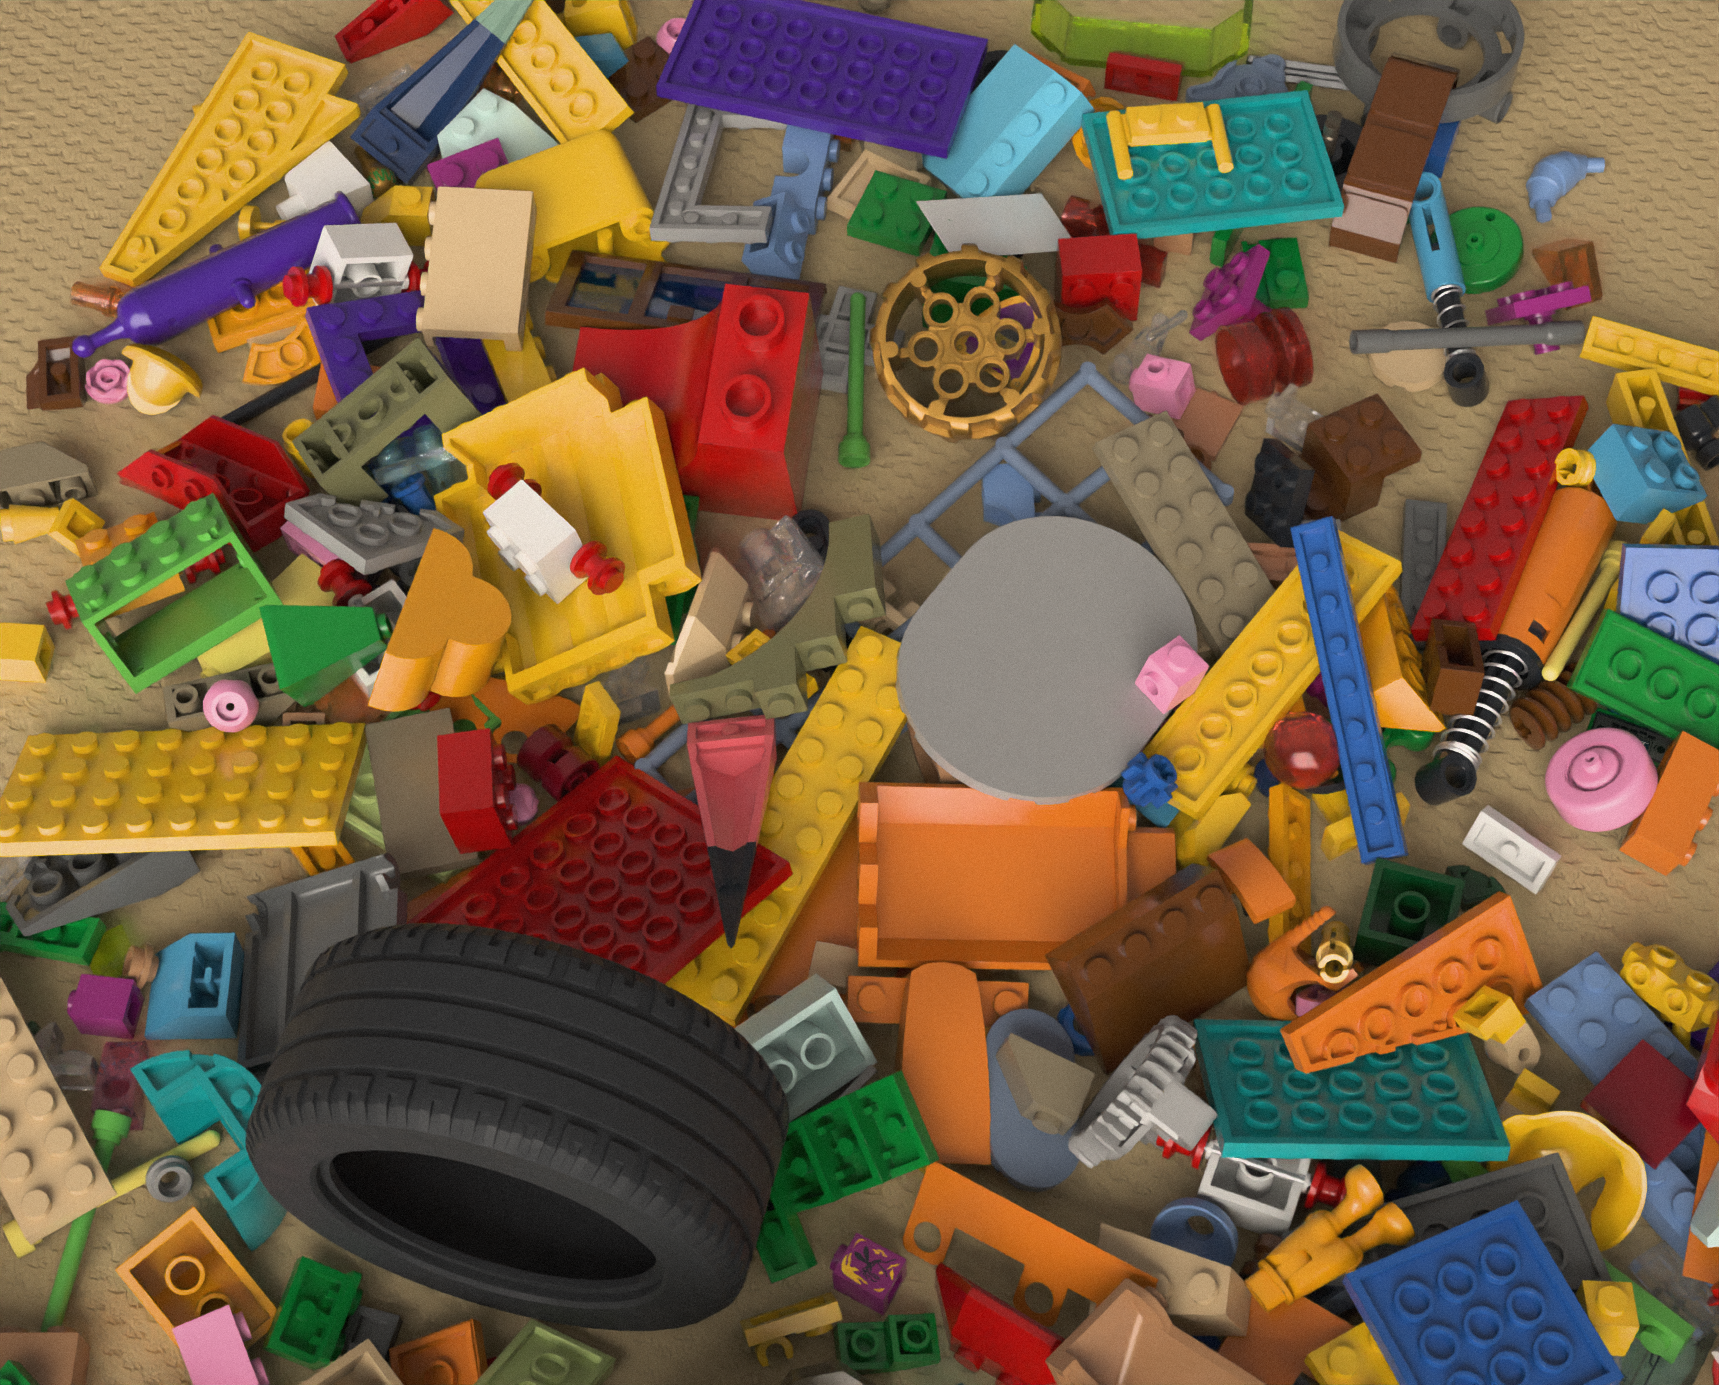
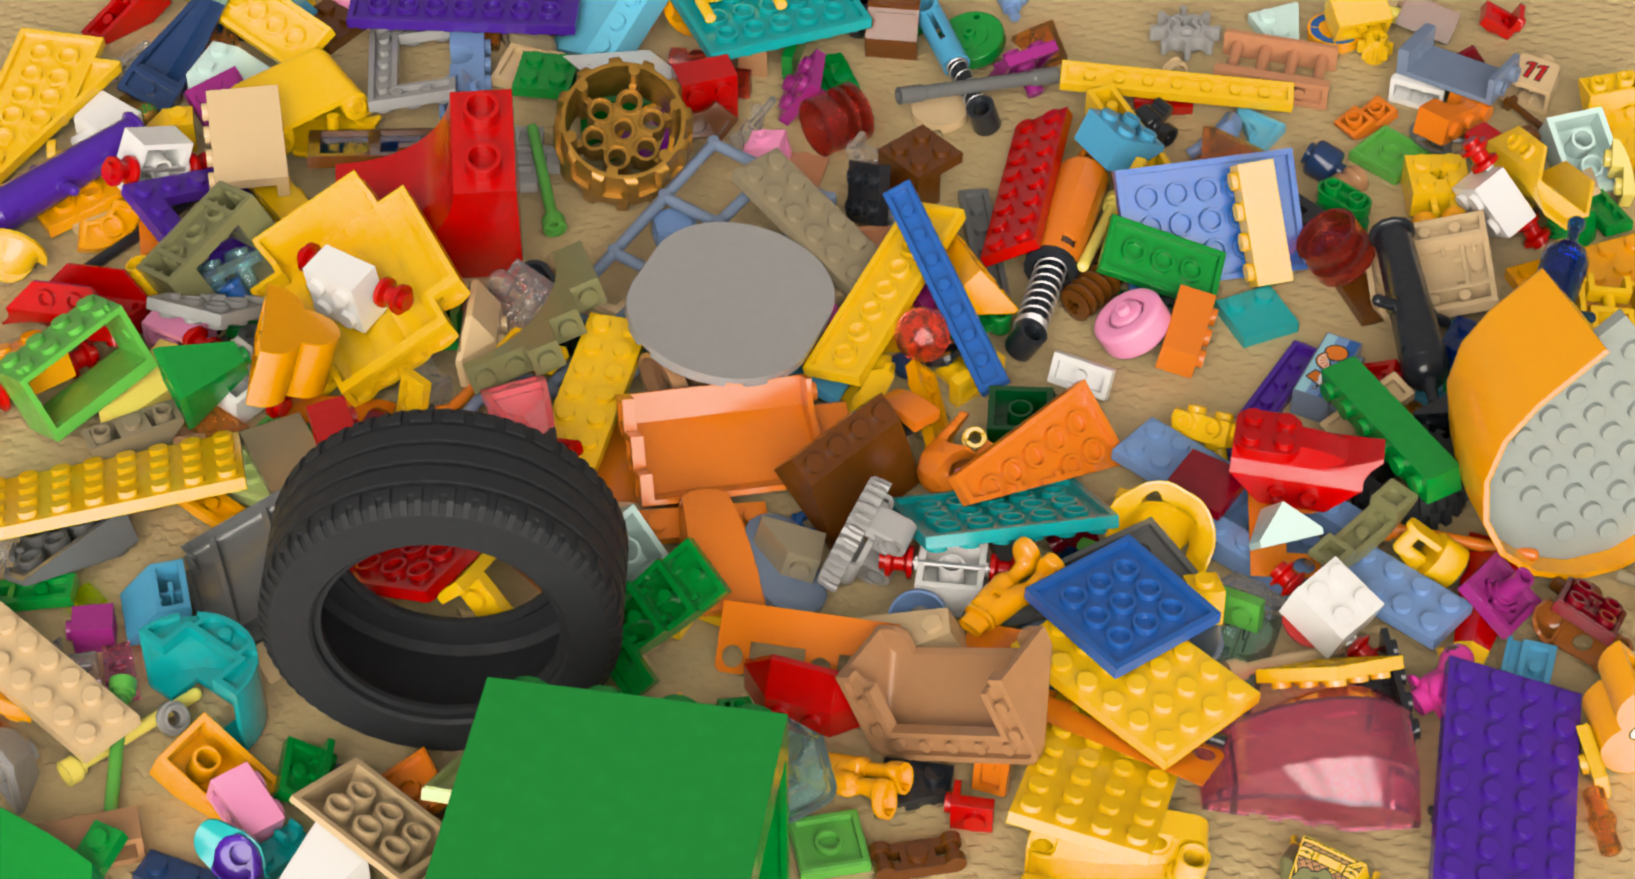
camera: 15 degrees left, 15 degrees down
(140, 964) = (113, 594): medium nougat plate -> none
(233, 692) = (128, 434): bright pink plate -> none
(868, 1273) = (697, 678): magenta brick -> none
(1149, 780) = (820, 361): blue gear -> none
(1171, 674) = (820, 297): bright pink brick -> none
(1452, 667) = (1014, 267): reddish brown piece -> none
(1502, 1028) = (1098, 468): yellow leg -> none
(1584, 471) = (1077, 147): yellow bush -> none

